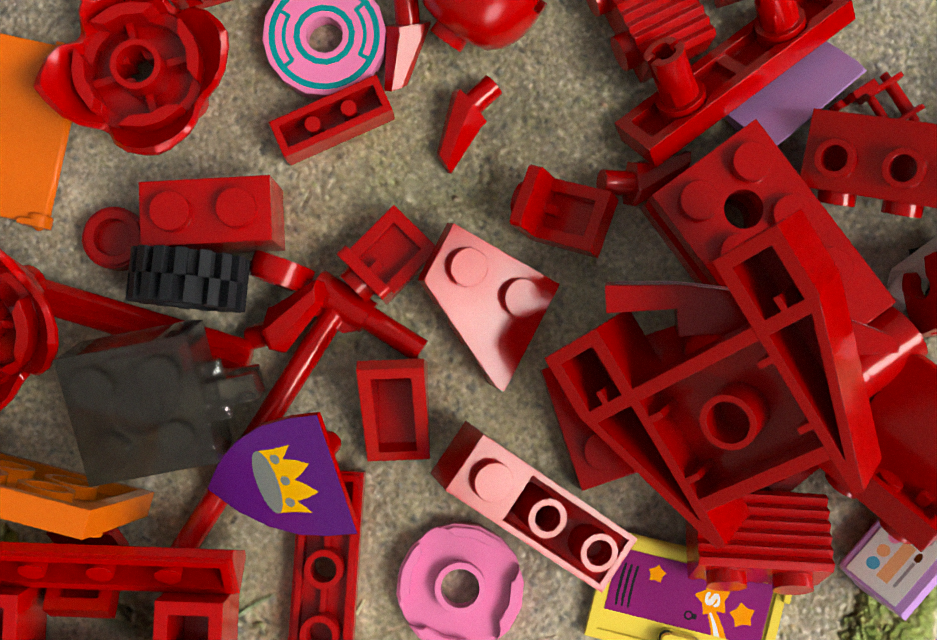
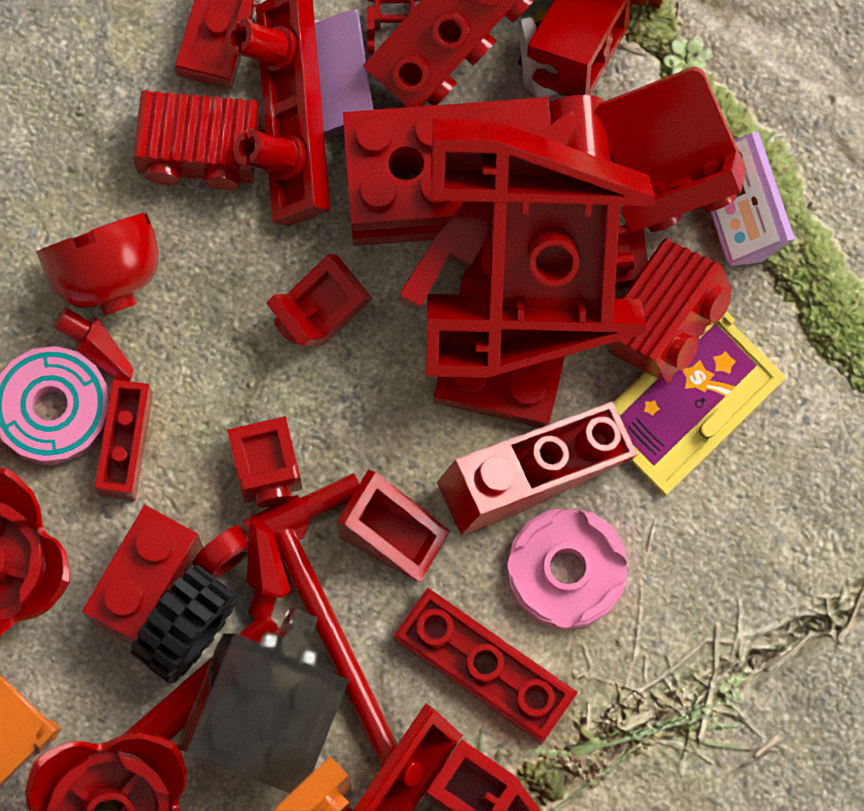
camera: 60 degrees left, 10 degrees down
(109, 237) = (104, 677): red tile -> none
(288, 477) = (394, 640): dark purple shield -> none
(465, 120) = (193, 336): red bar -> none
(488, 300) = (350, 404): wing -> none
(642, 178) = (331, 227): red bar -> none

